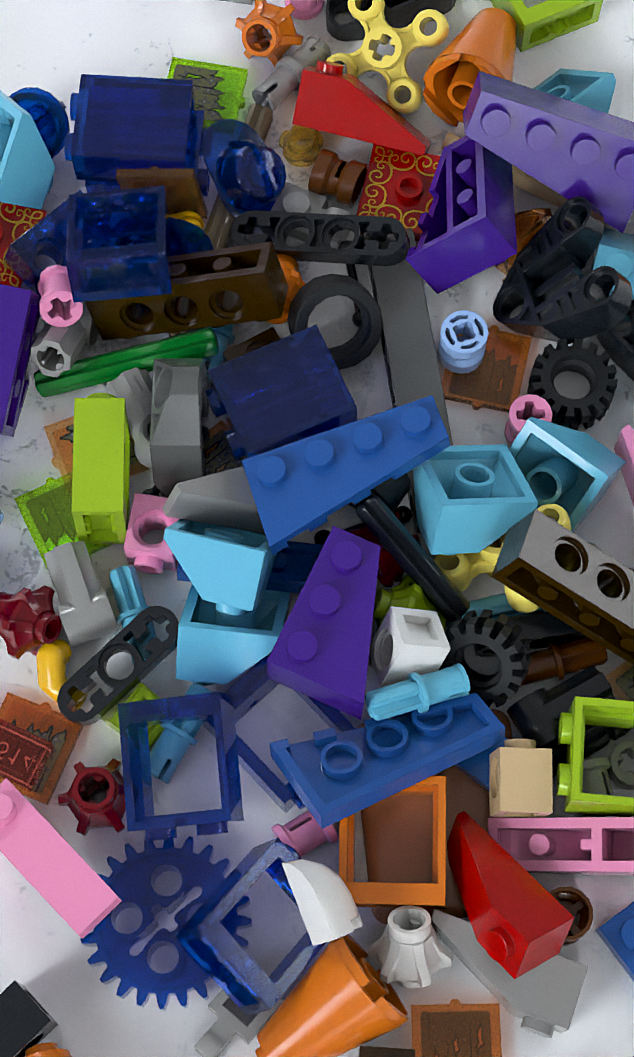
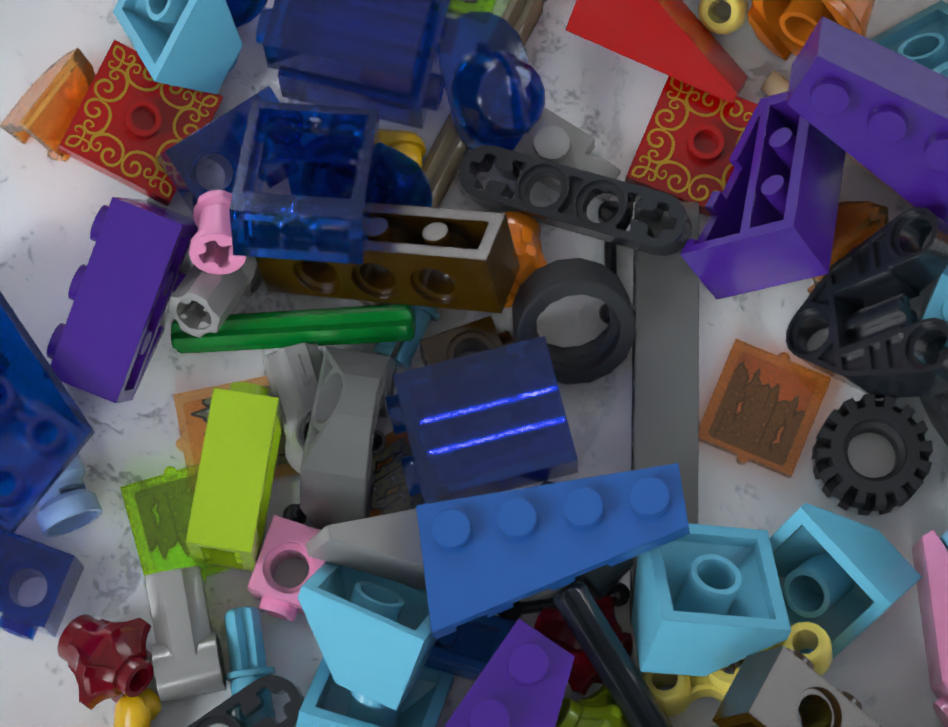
camera: 10 degrees right, 5 degrees up
(180, 187) = (398, 105): clear orange piece -> none
(304, 154) = (572, 70): clear yellow plate -> none
(337, 177) = (613, 113): reddish brown wheel -> none
(462, 353) = (730, 386): light blue wheel -> none
(521, 410) = (814, 480): bright pink bush -> none

